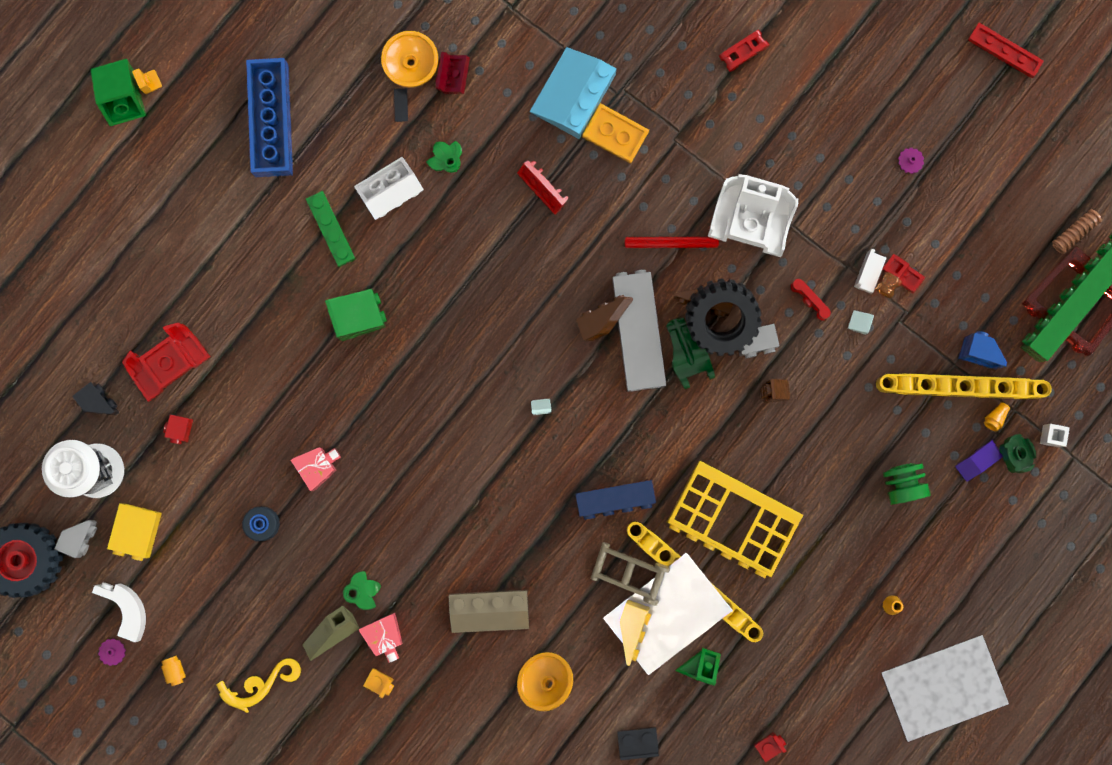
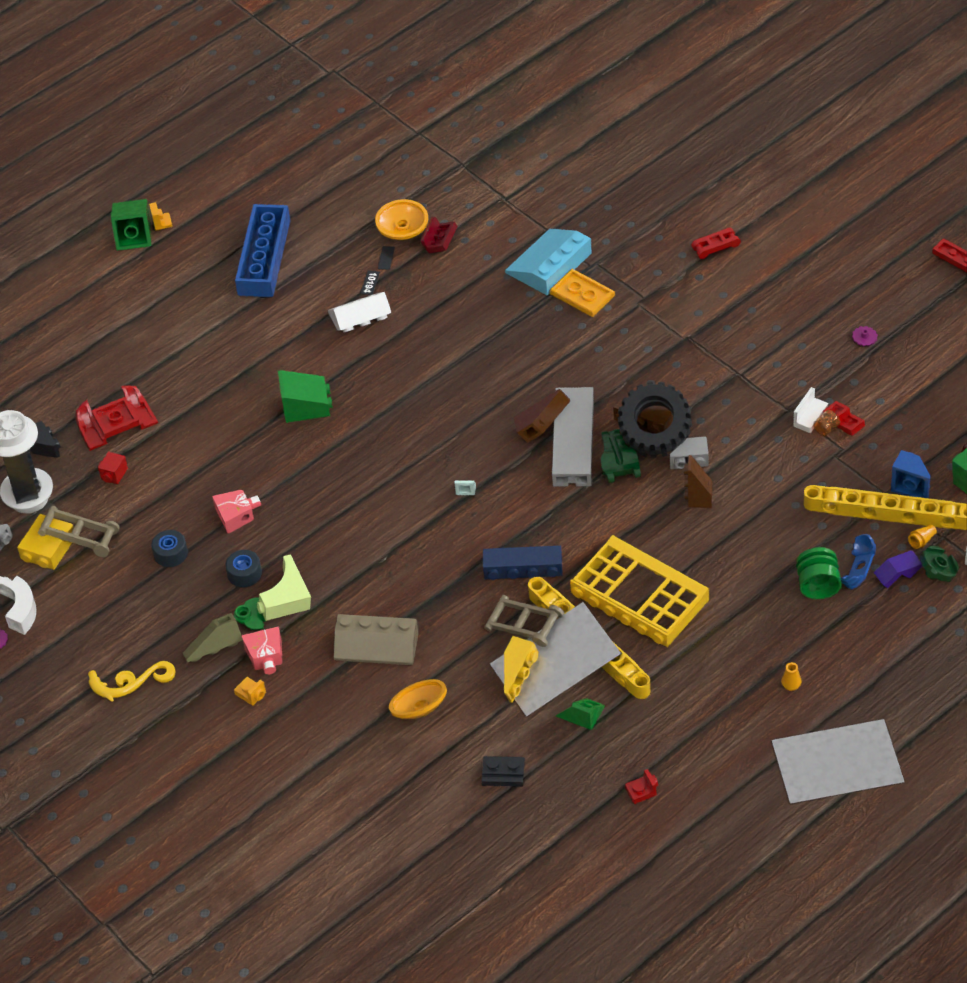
camera: 15 degrees right, 35 degrees down
(173, 671) = (49, 656): light orange brick -> none
(192, 505) = (100, 549): none -> dark tan piece
(330, 229) = (297, 338): green plate -> none
(334, 539) = (243, 568): none -> black wheel
(390, 141) = (370, 282): none -> black sticker
(394, 567) = (287, 596): none -> yellowish green arch
(445, 154) = (418, 295): green plate -> none
(542, 187) = (504, 322): red plate -> none
(671, 242) = (618, 374): red axle -> none
(754, 213) = (702, 352): white piece -> none
(810, 299) = (747, 426): red plate -> none
(860, 322) = (795, 451): light aqua slope -> none
(945, 444) = (864, 551): none -> blue piece

